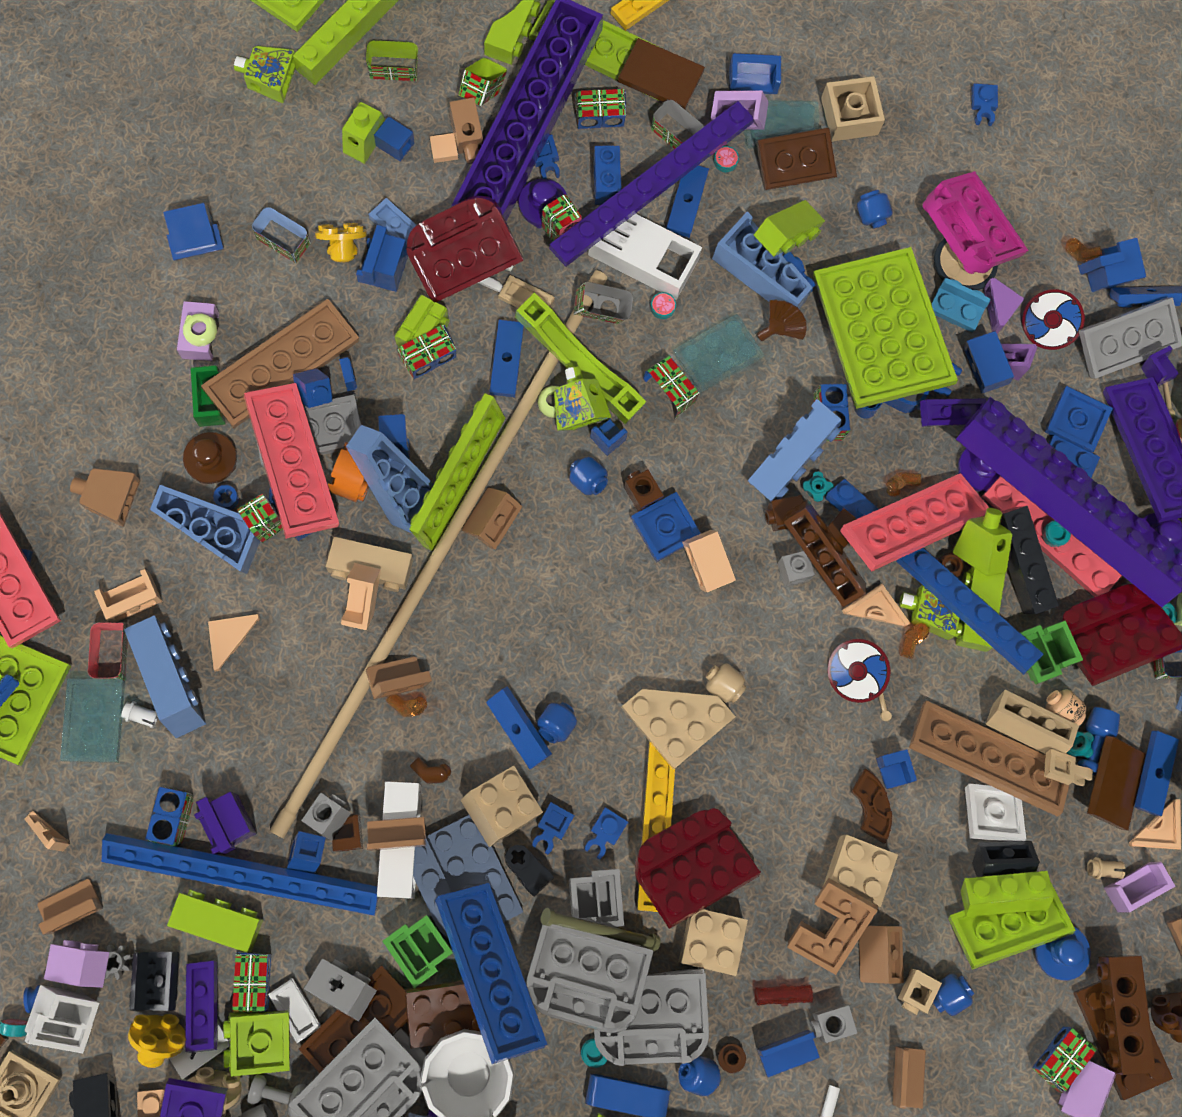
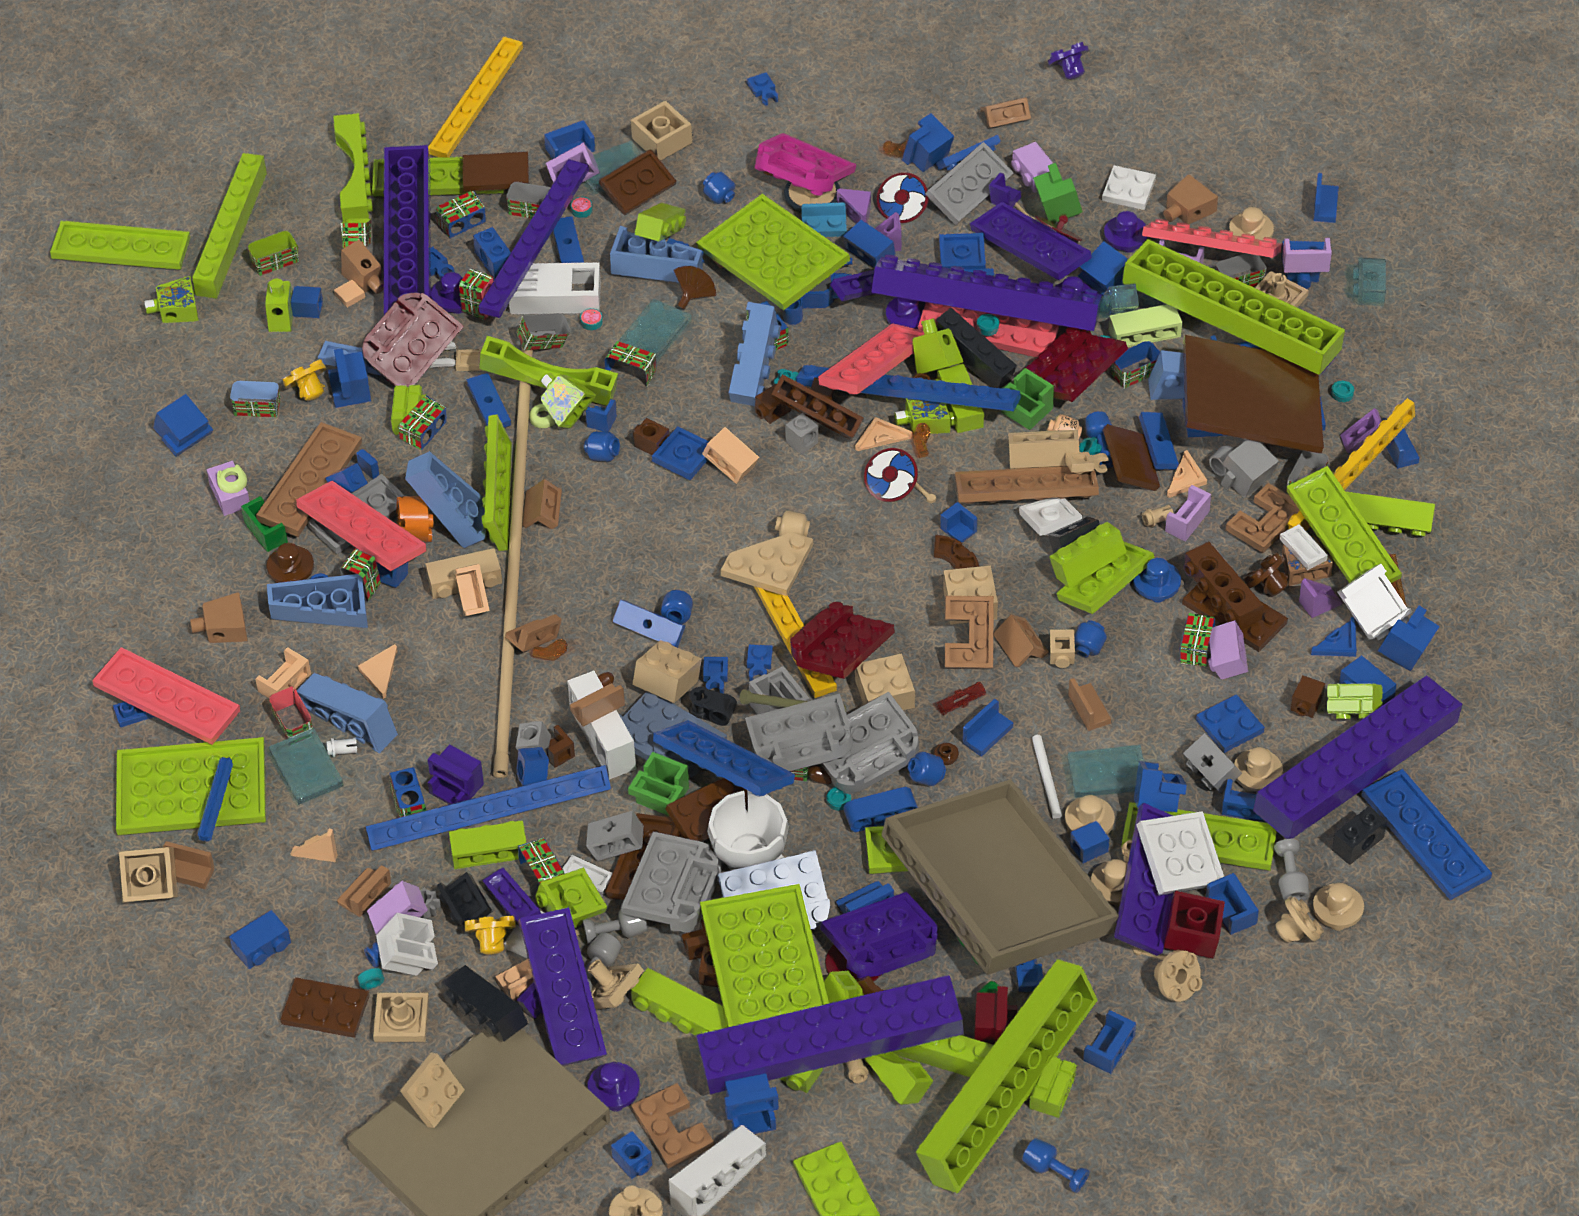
camera: 15 degrees left, 25 degrees down
(845, 1028) = (1011, 694): light grey brick -> none
(901, 479) = (850, 346): clear orange arm -> none

